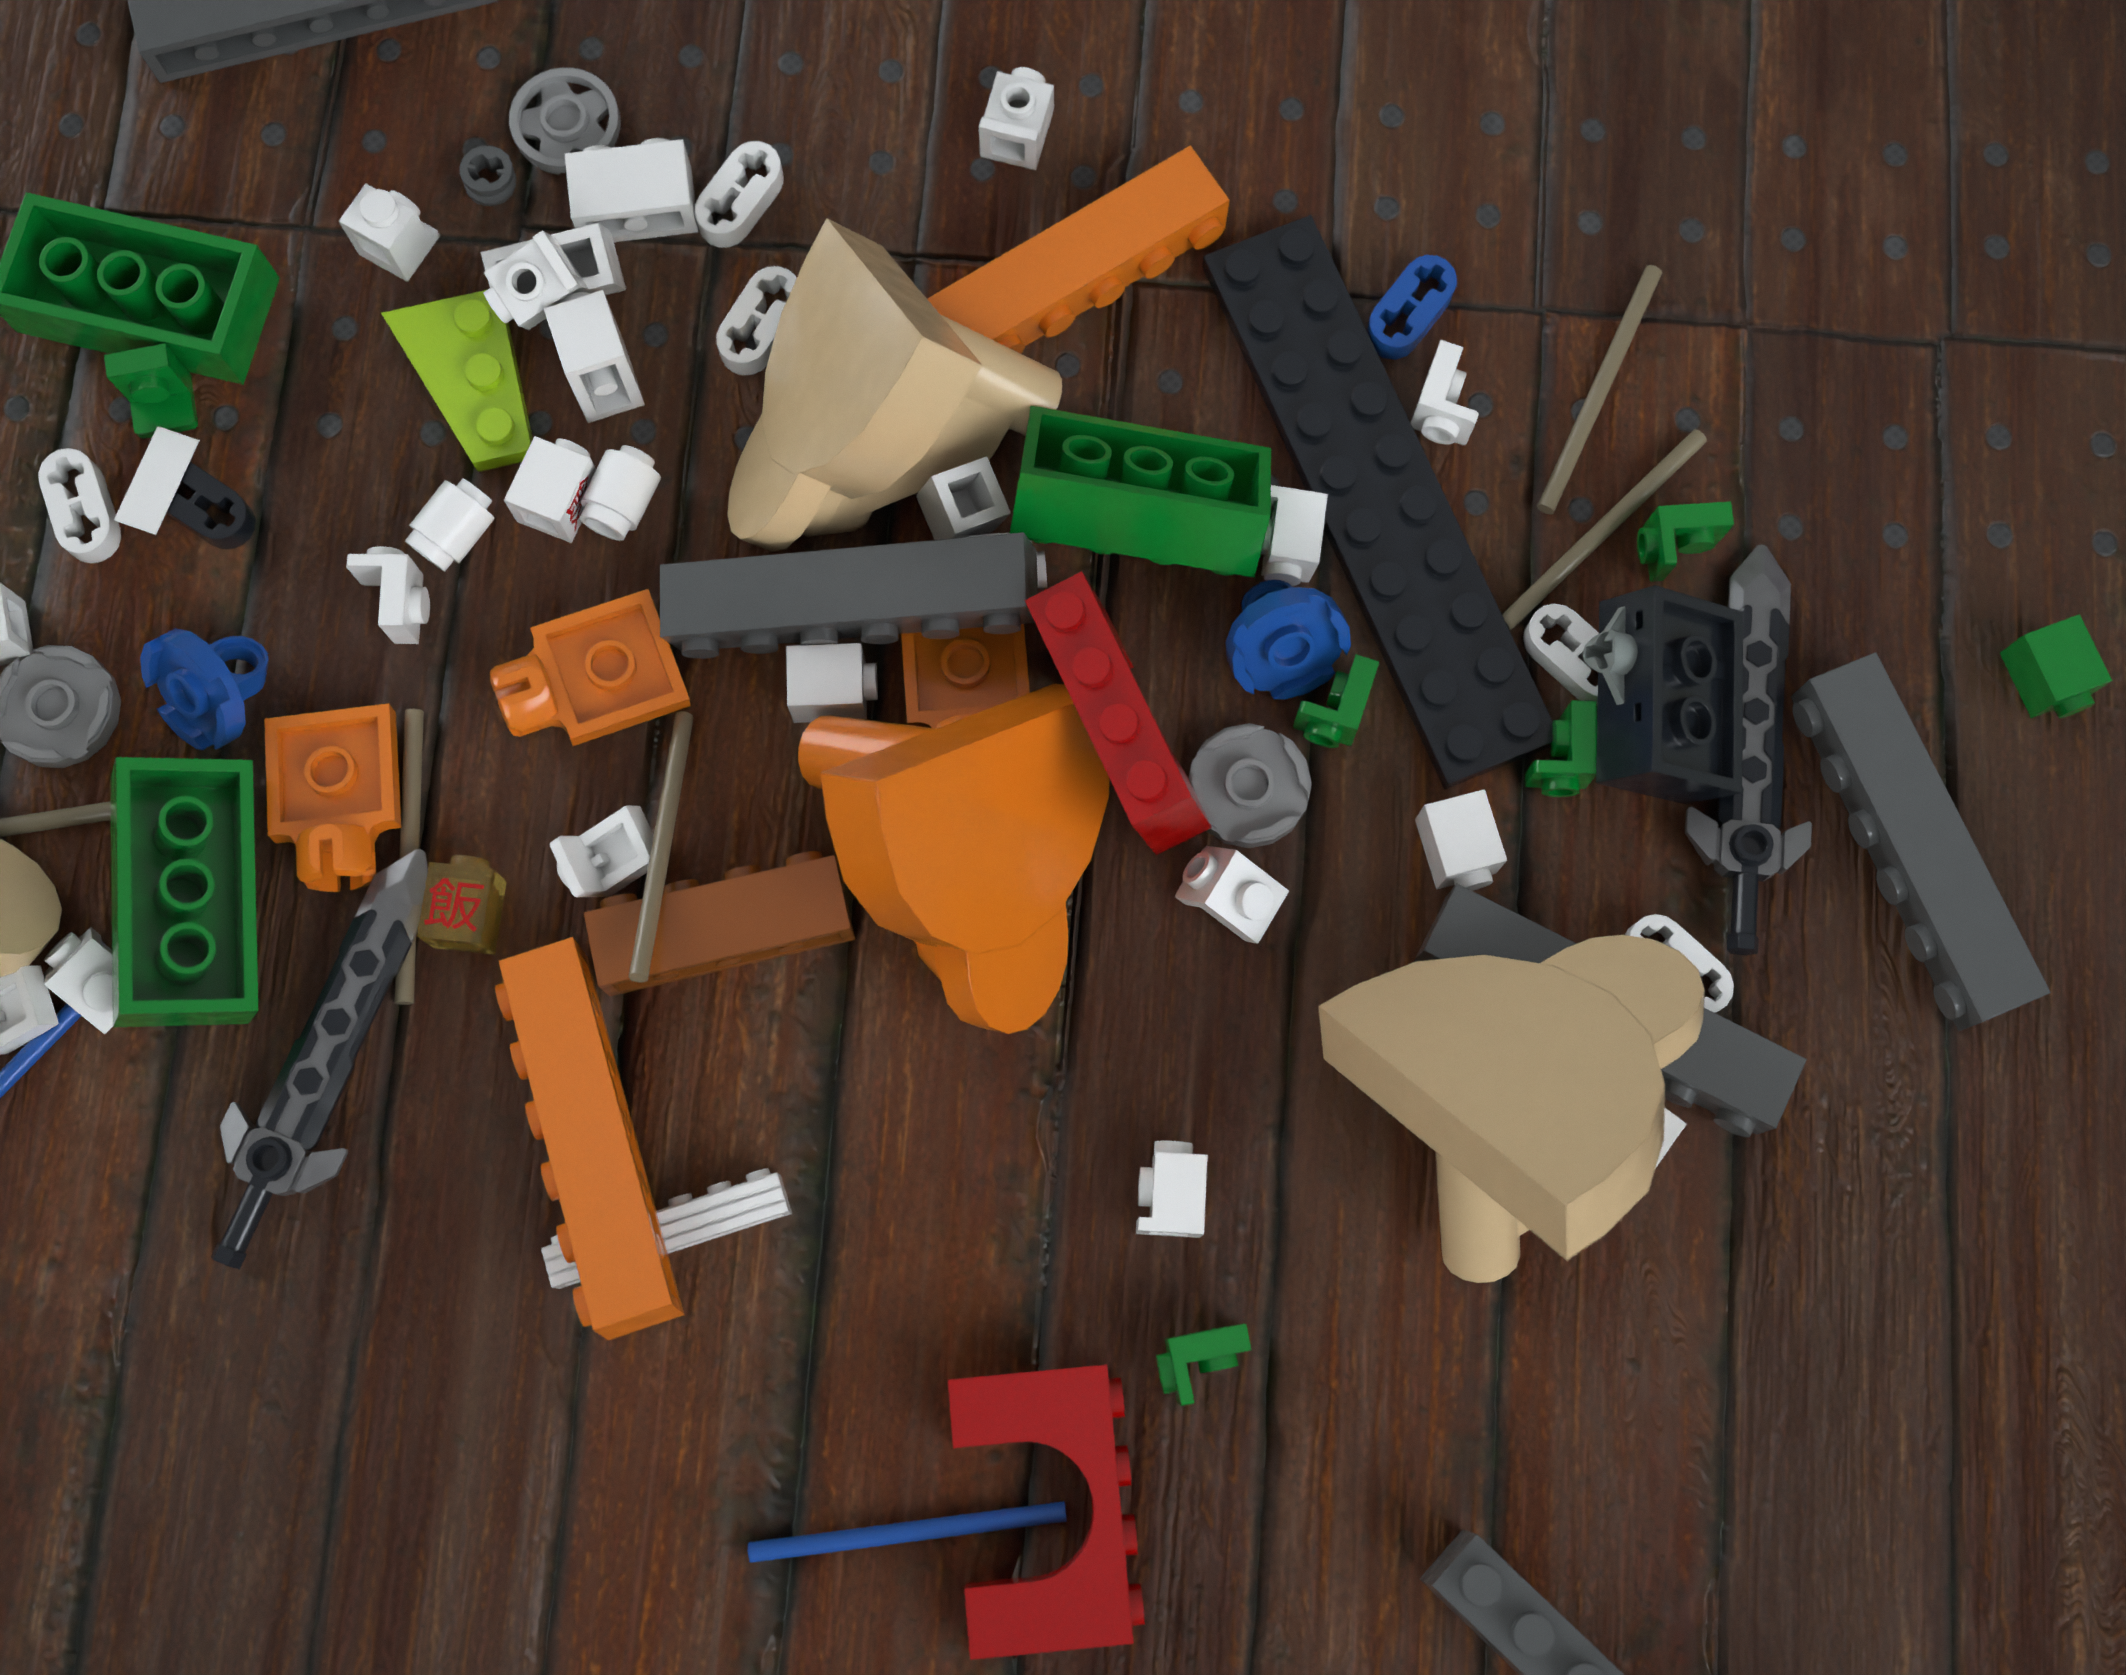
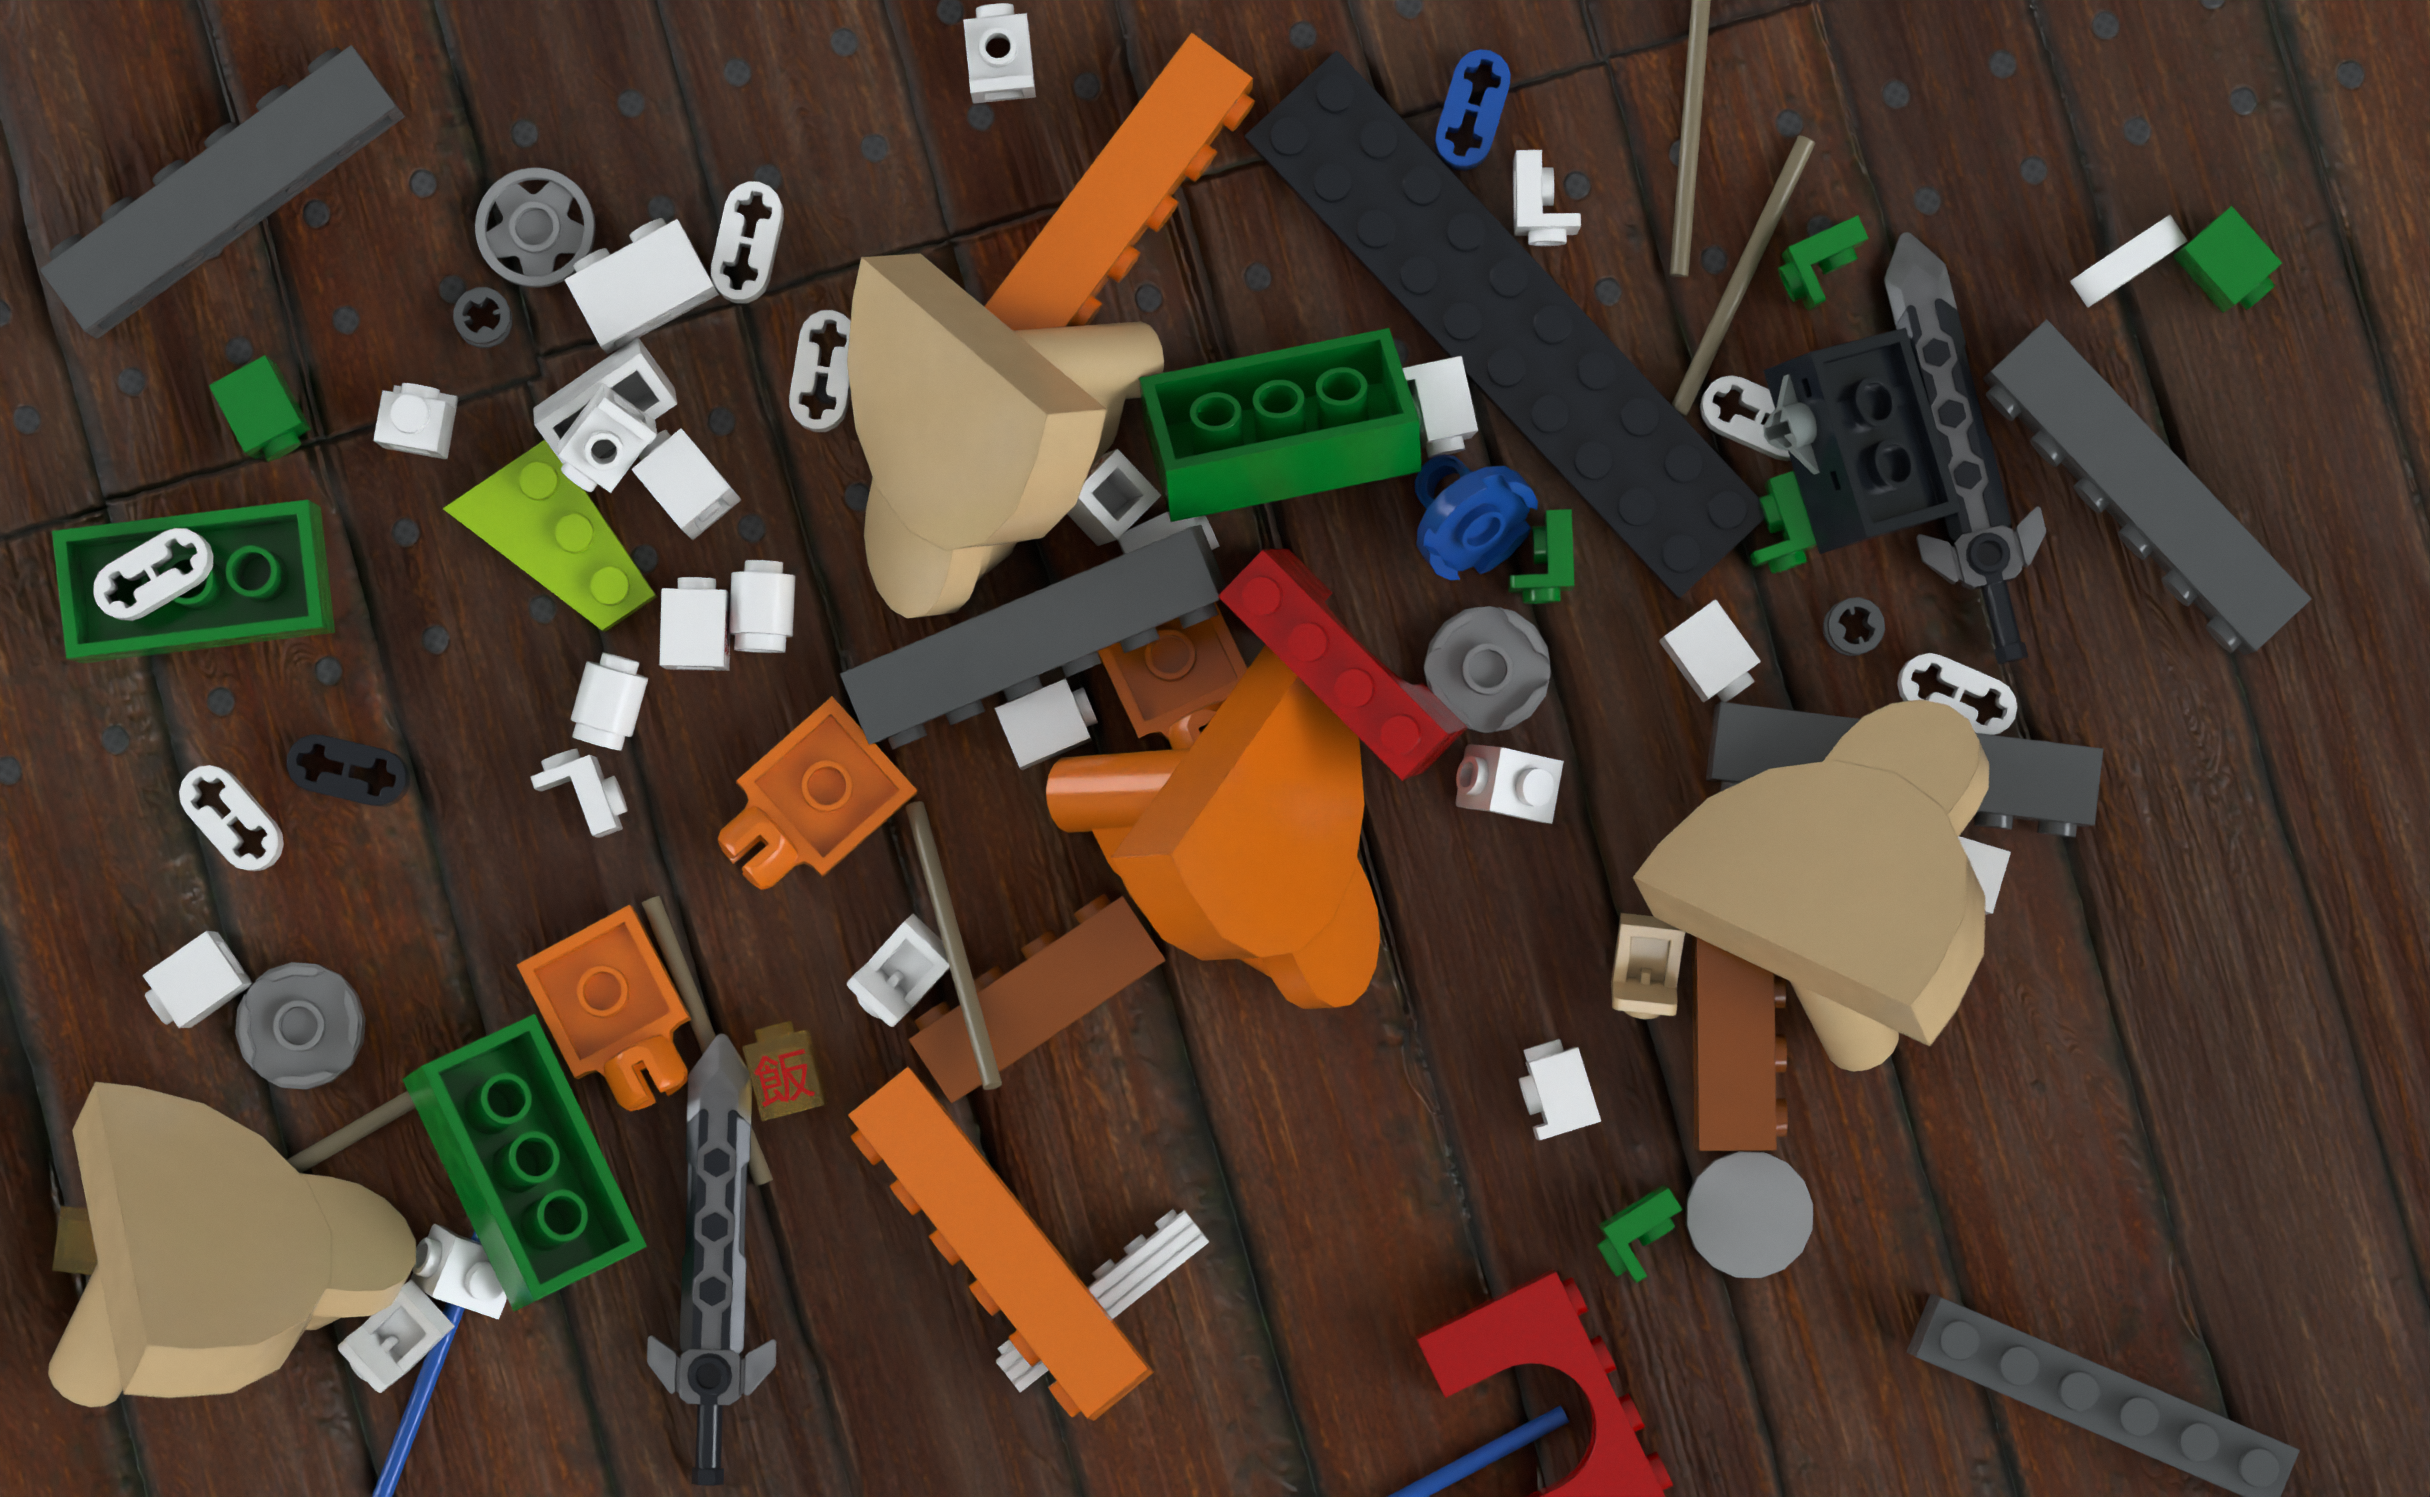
camera: 20 degrees left, 10 degrees up
(90, 253) = (145, 561): none -> white beam
(155, 387) = (261, 680): green bracket -> none
(156, 480) = (301, 767): white sticker -> none
(199, 689) = (443, 962): blue tile -> none
(263, 174) = (261, 409): none -> green brick
(1300, 1106) = (1646, 967): none -> tan bracket
(1313, 1383) = (1749, 1214): none -> light grey tile
(1357, 1215) = (1735, 1052): none -> dark orange brick
(1582, 865) = (1835, 631): none -> dark grey bush
(1962, 636) = (2128, 261): none -> white beam

